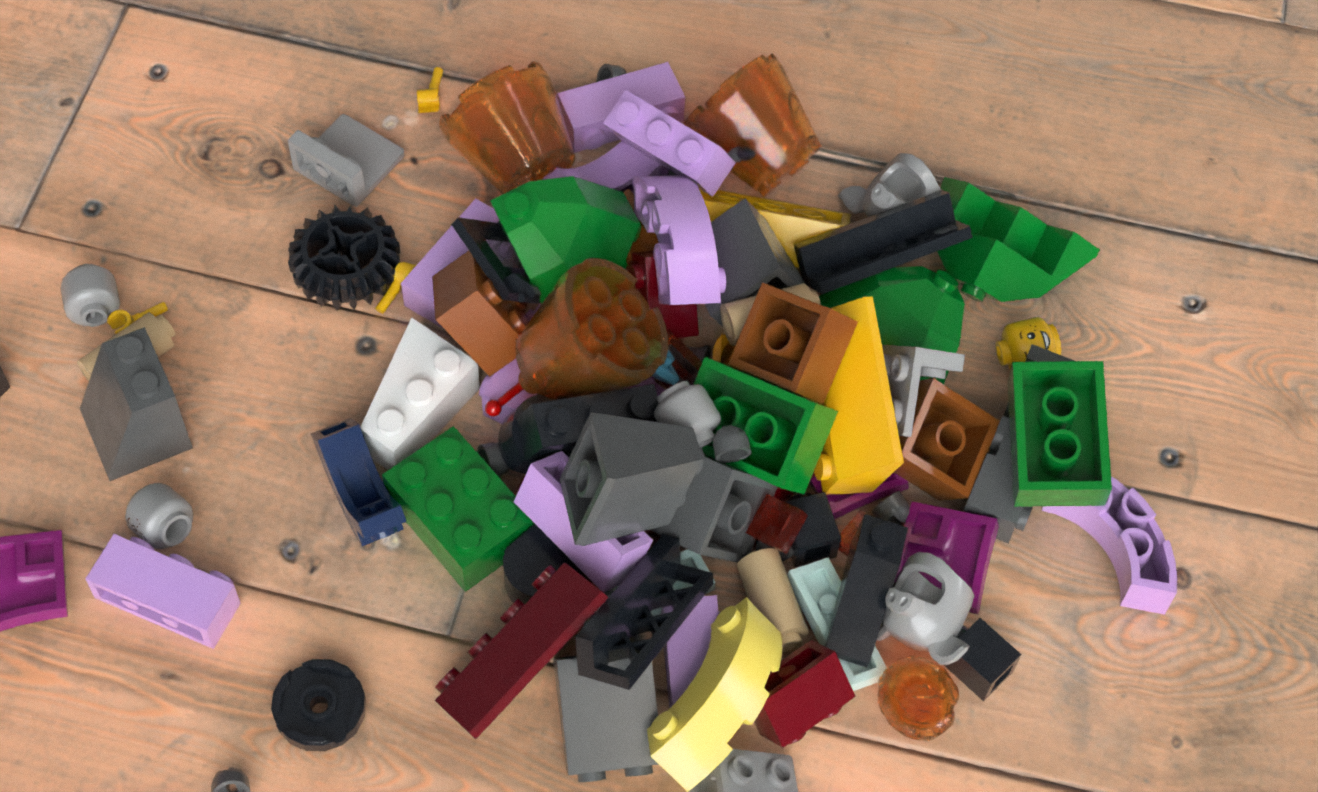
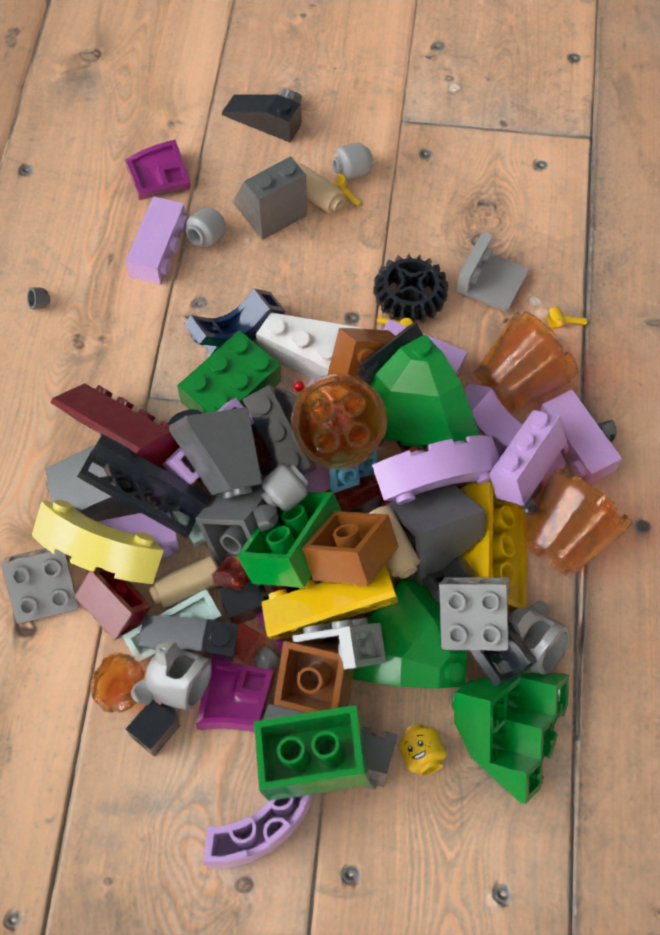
camera: 85 degrees right, 5 degrees up
(313, 684) = (90, 321): black plate -> none
(881, 228) = (474, 613): none -> light grey bracket

